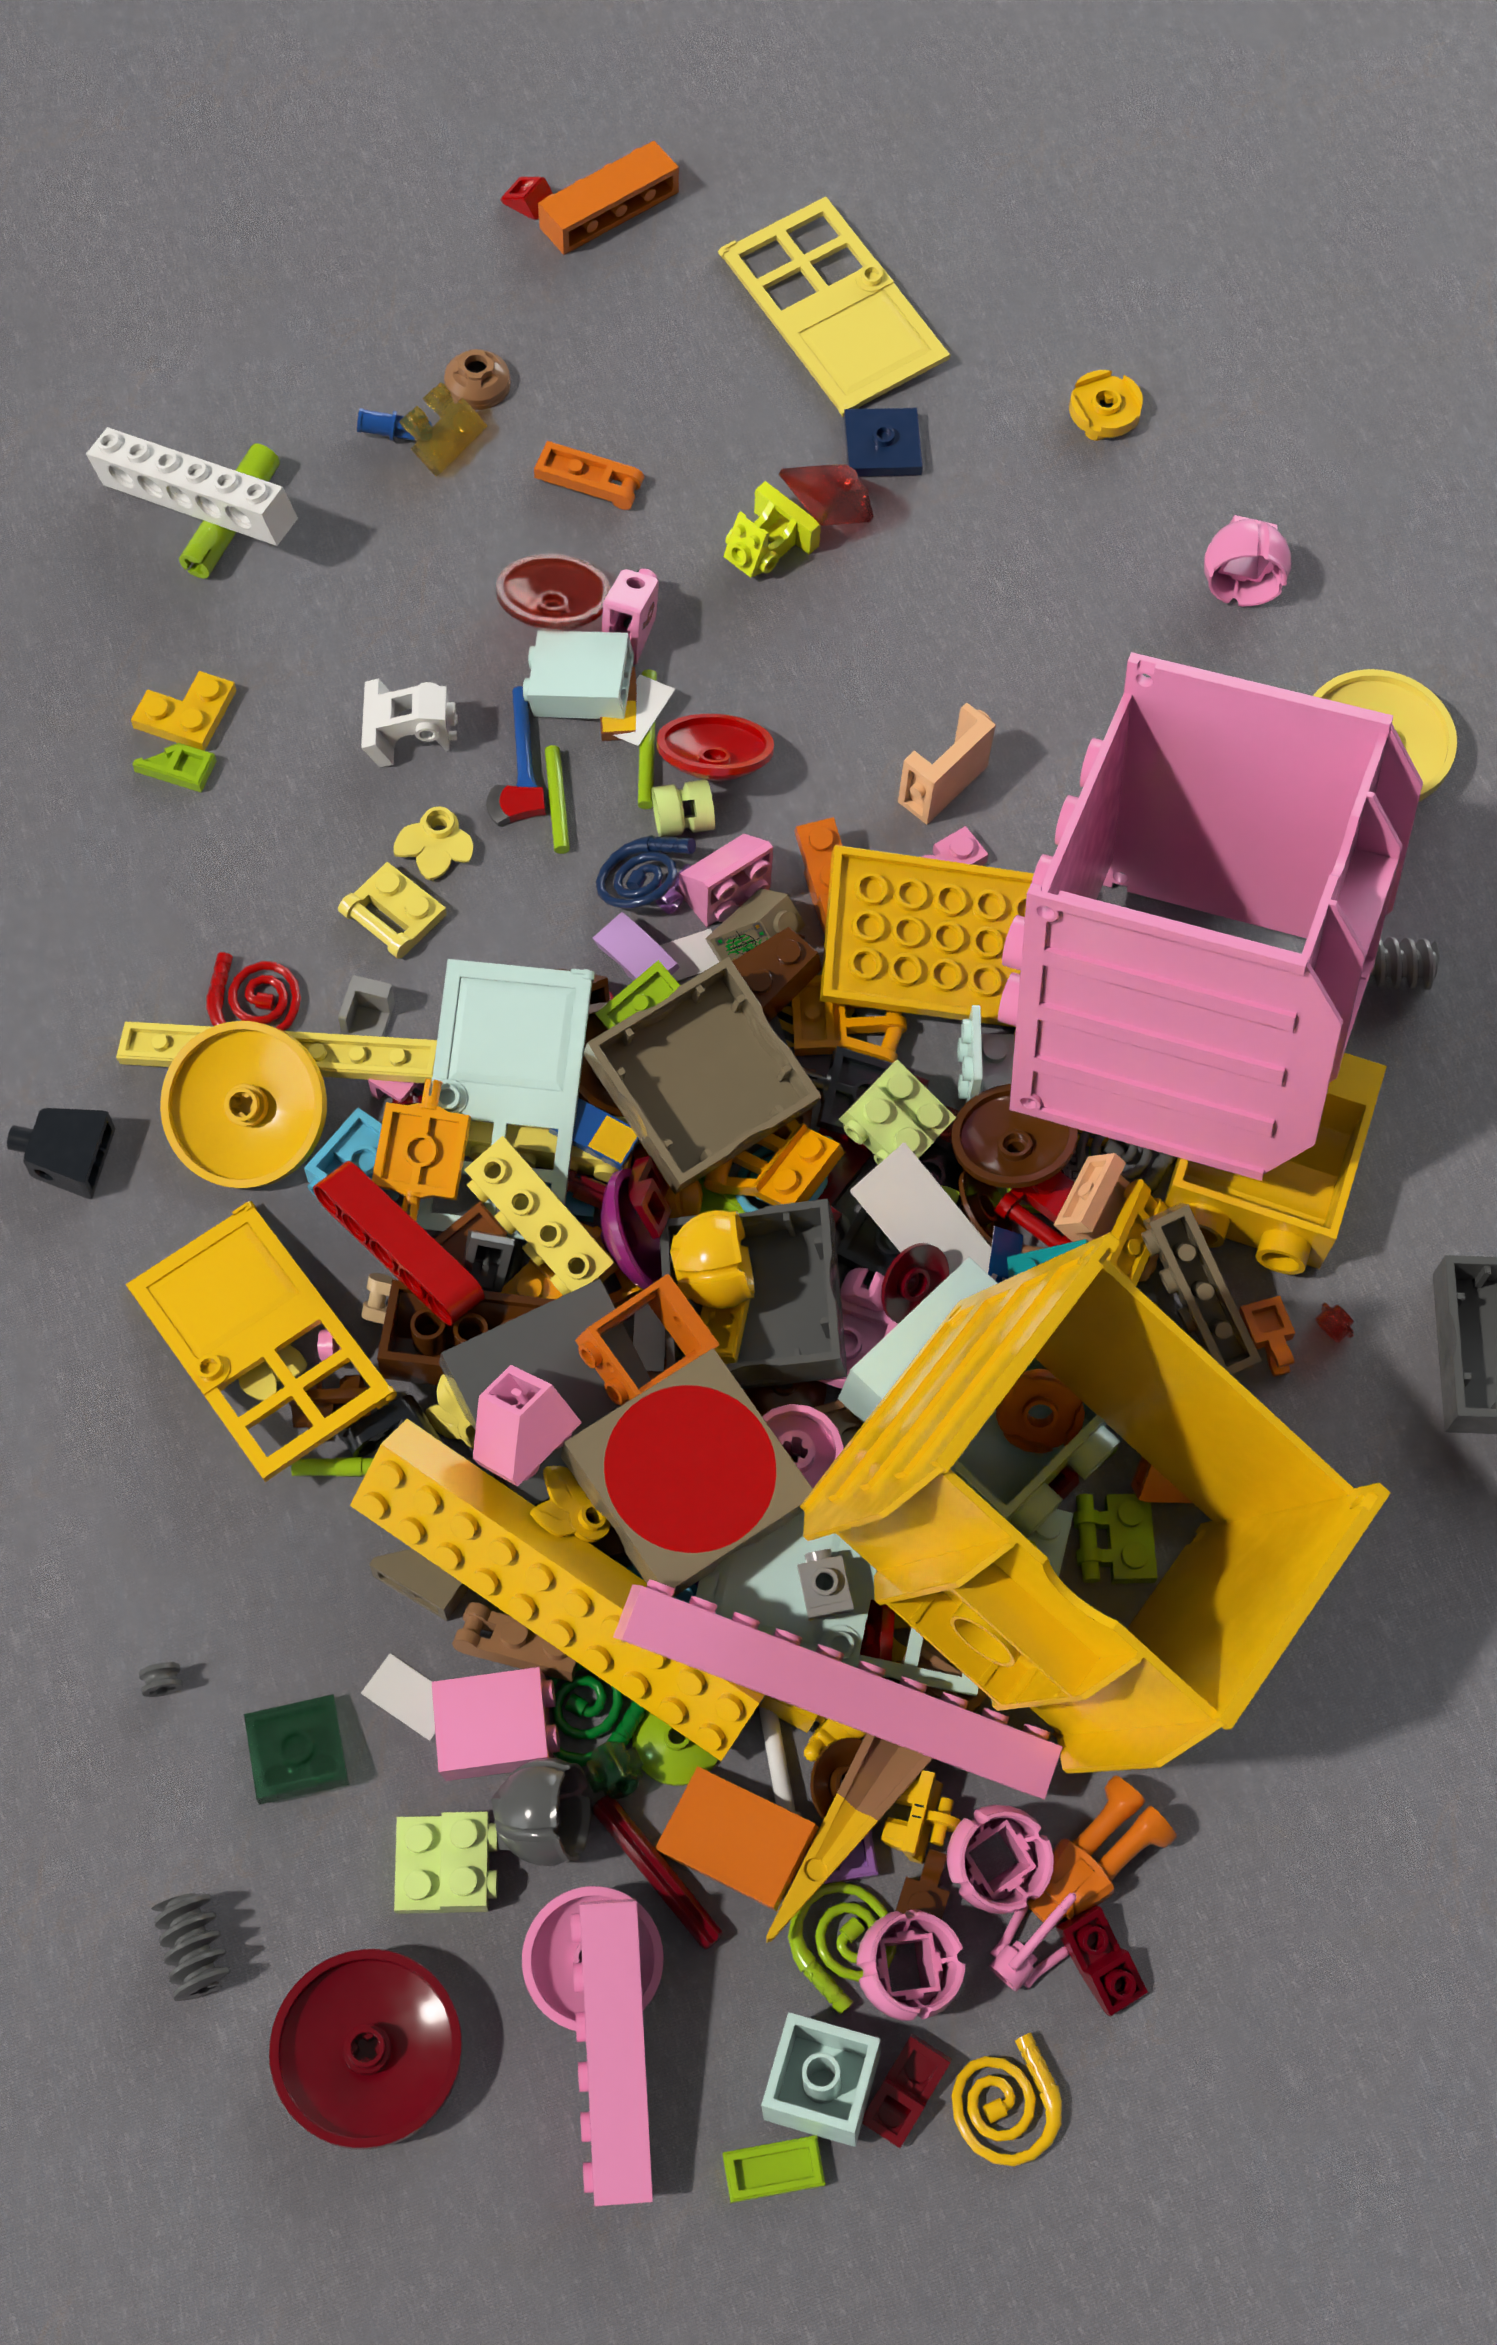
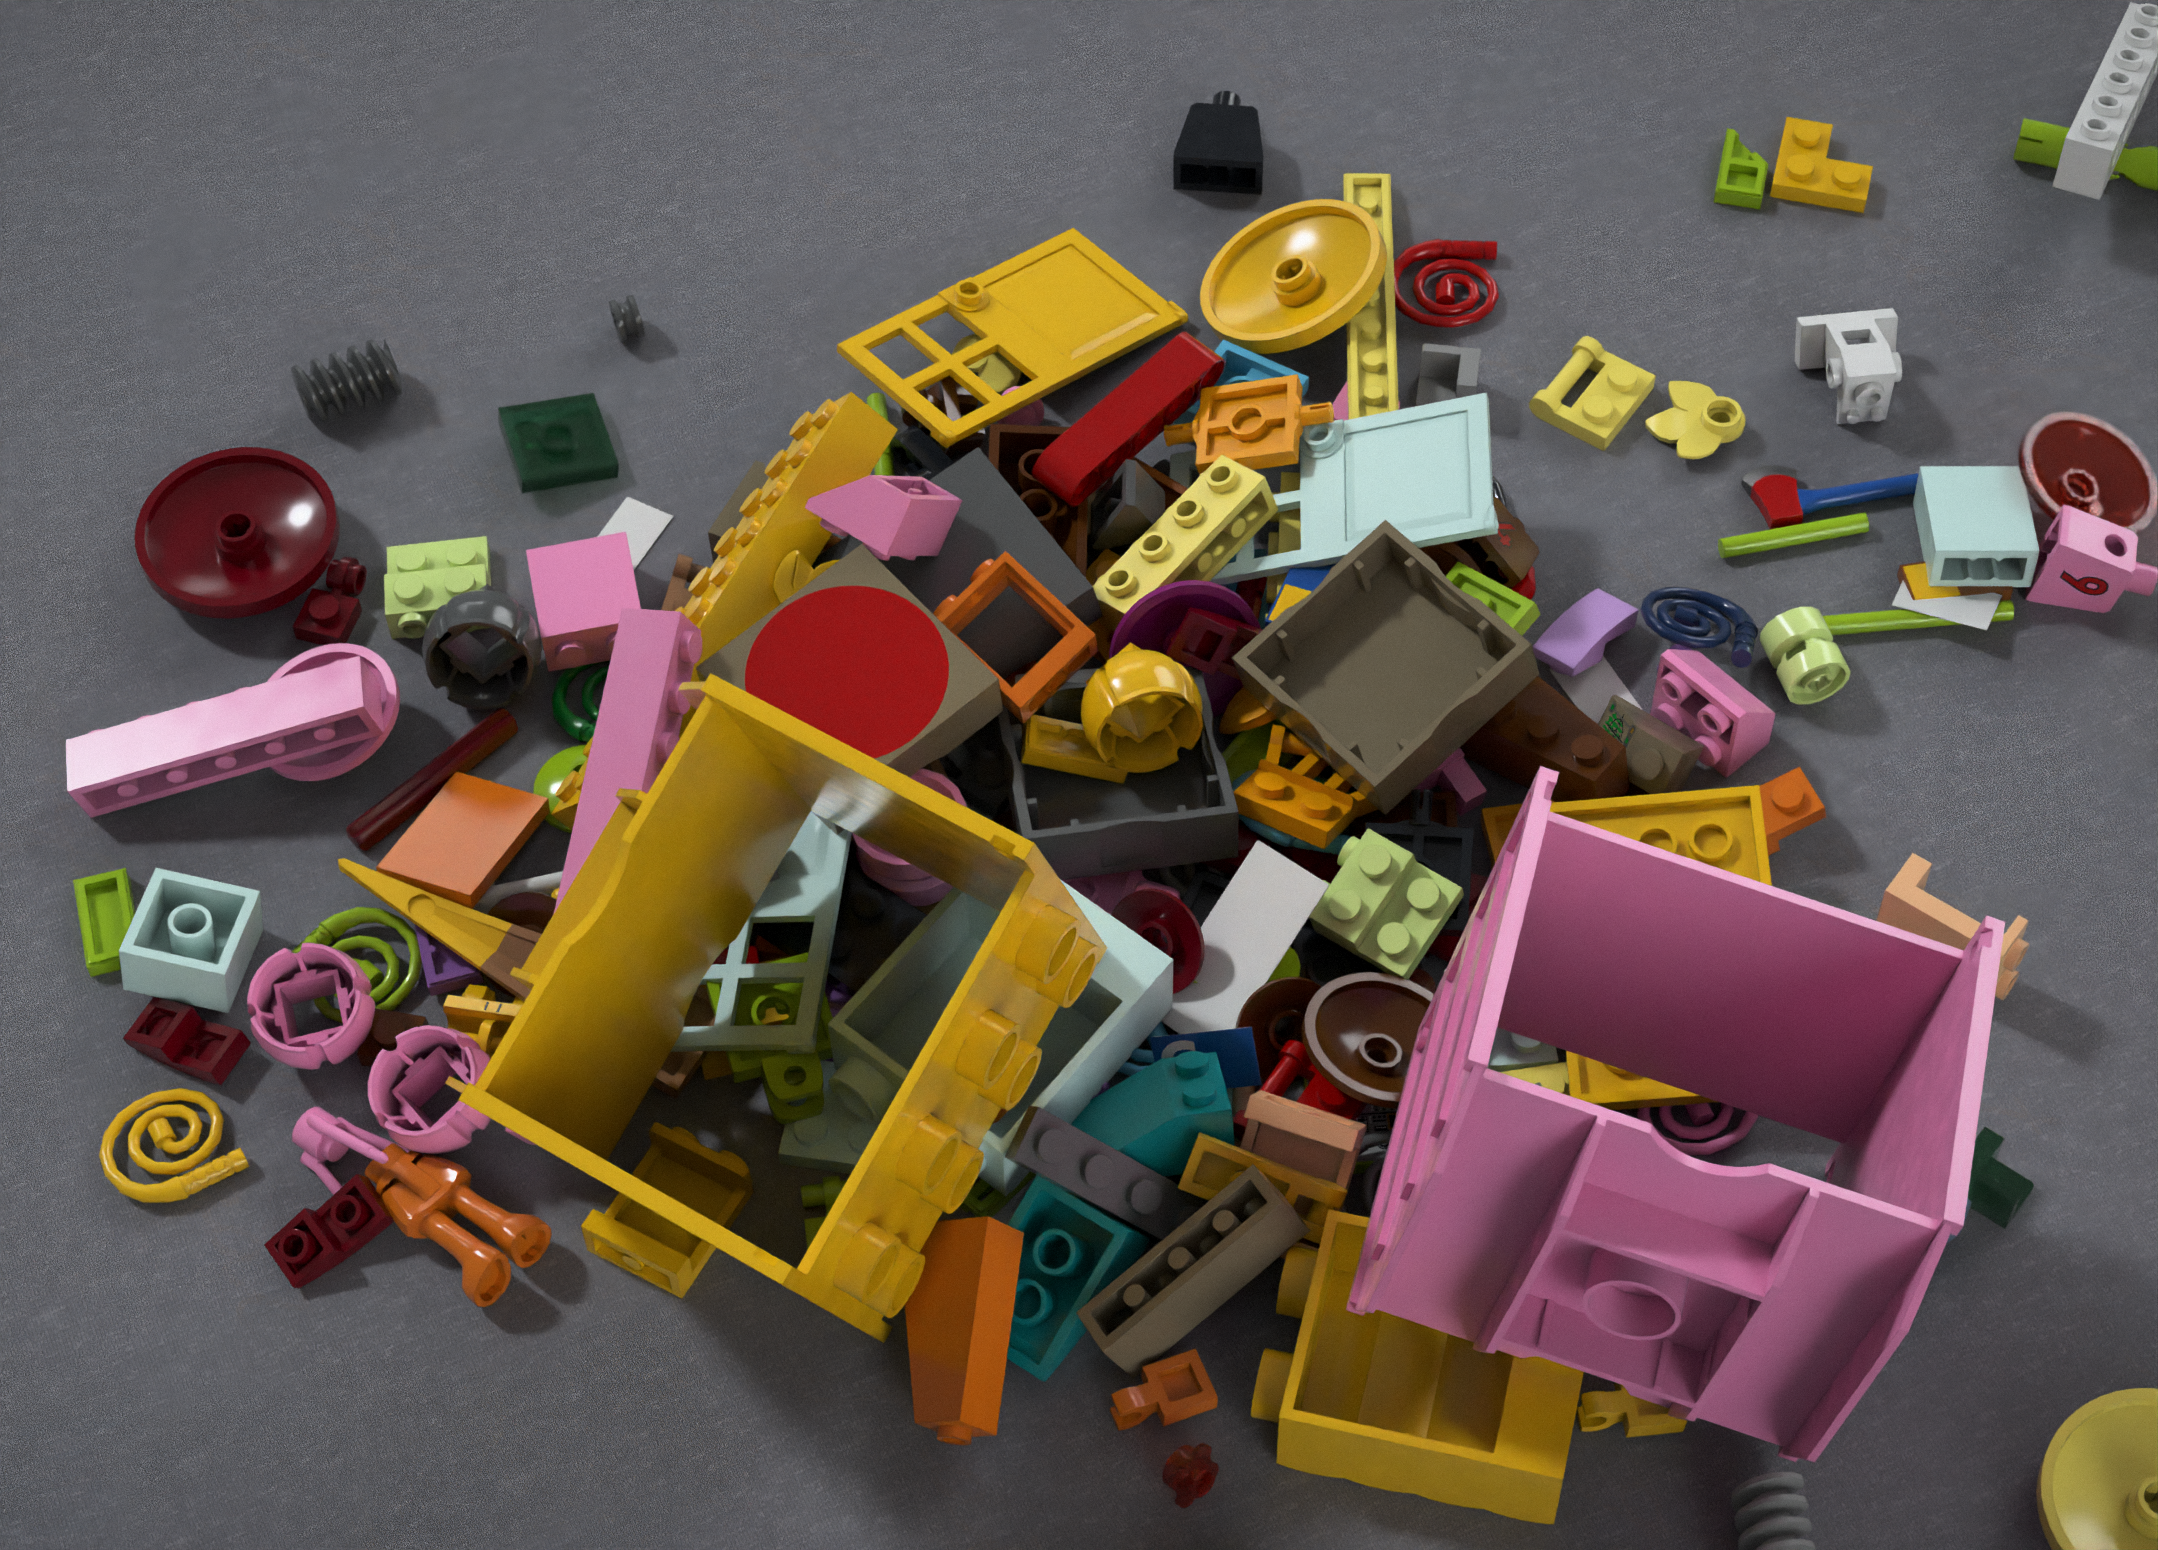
camera: 90 degrees right, 10 degrees down
(459, 1968) = (333, 615): none -> dark red plate
(614, 1770) = (538, 716): clear green gear -> none
(715, 746) = (1904, 673): red dish -> none

